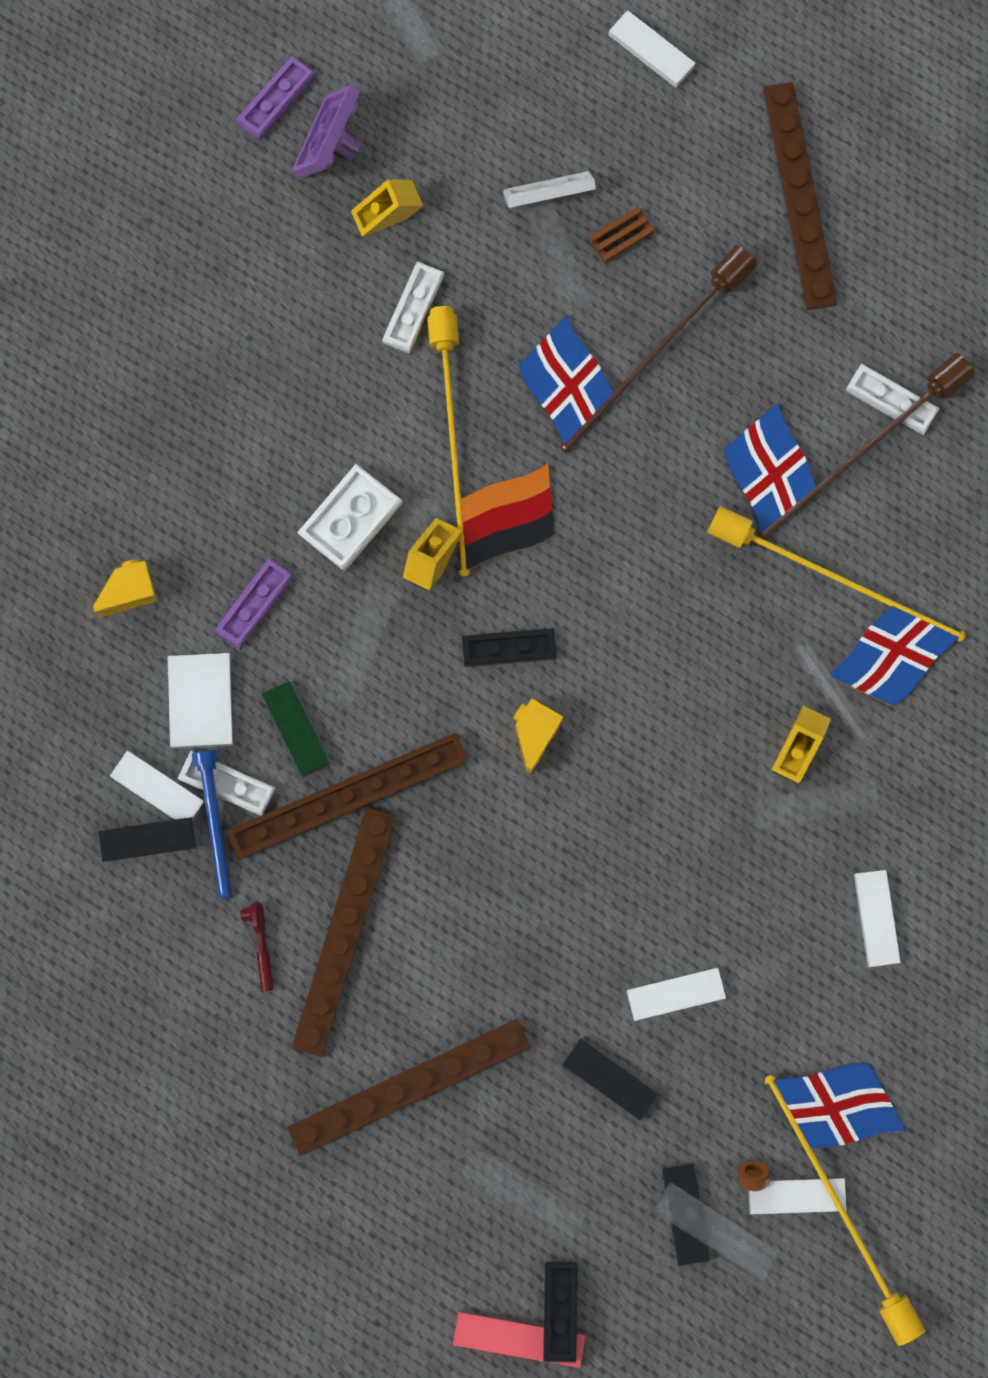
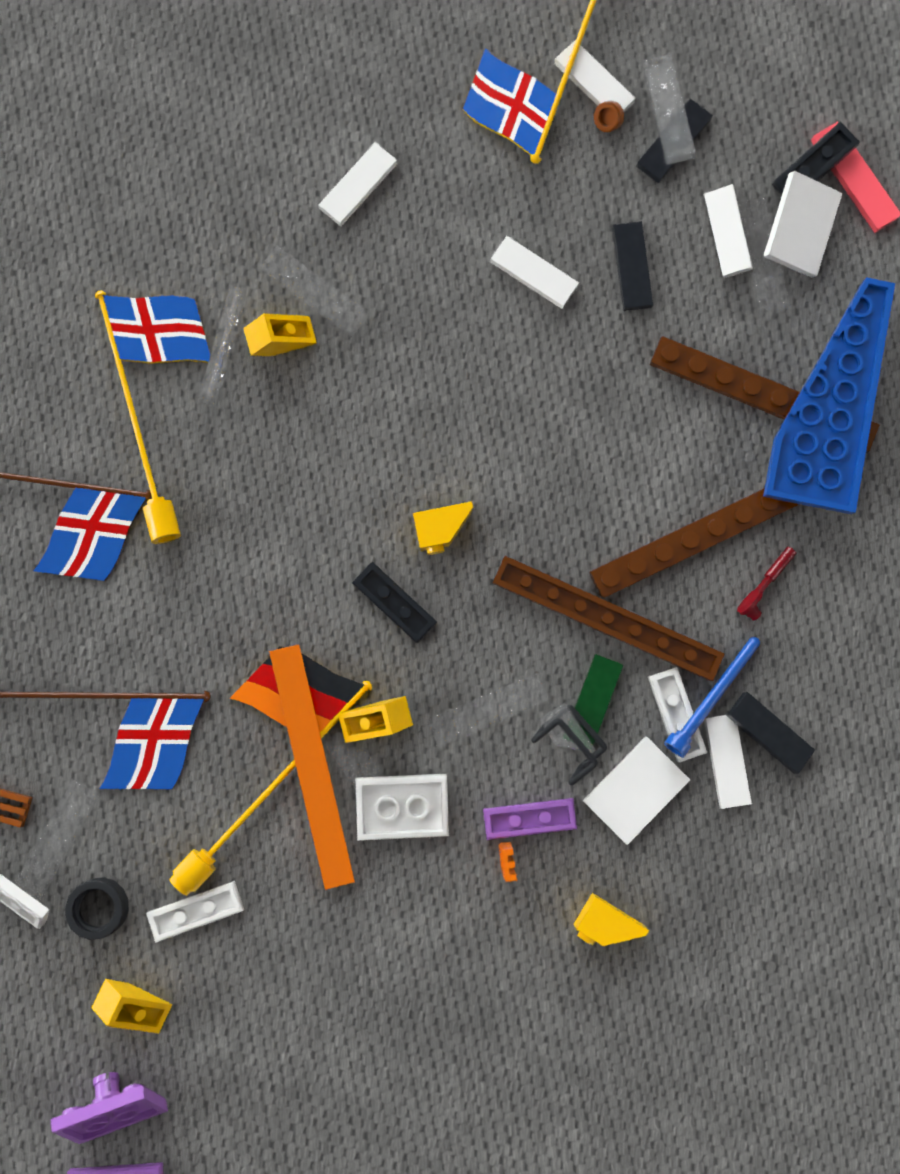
camera: 130 degrees left, 5 degrees up
(240, 553) = (507, 861): none -> orange tile
(252, 672) = (591, 761): none -> black piece
(293, 686) = (558, 736): none -> clear tile
(336, 1103) = (826, 433): none -> blue wing
(441, 478) = (312, 767): none -> orange tile
(475, 263) = (73, 915): none -> black tyre
(518, 1248) = (802, 224): none -> white tile
(568, 1184) = (728, 231): none -> white tile

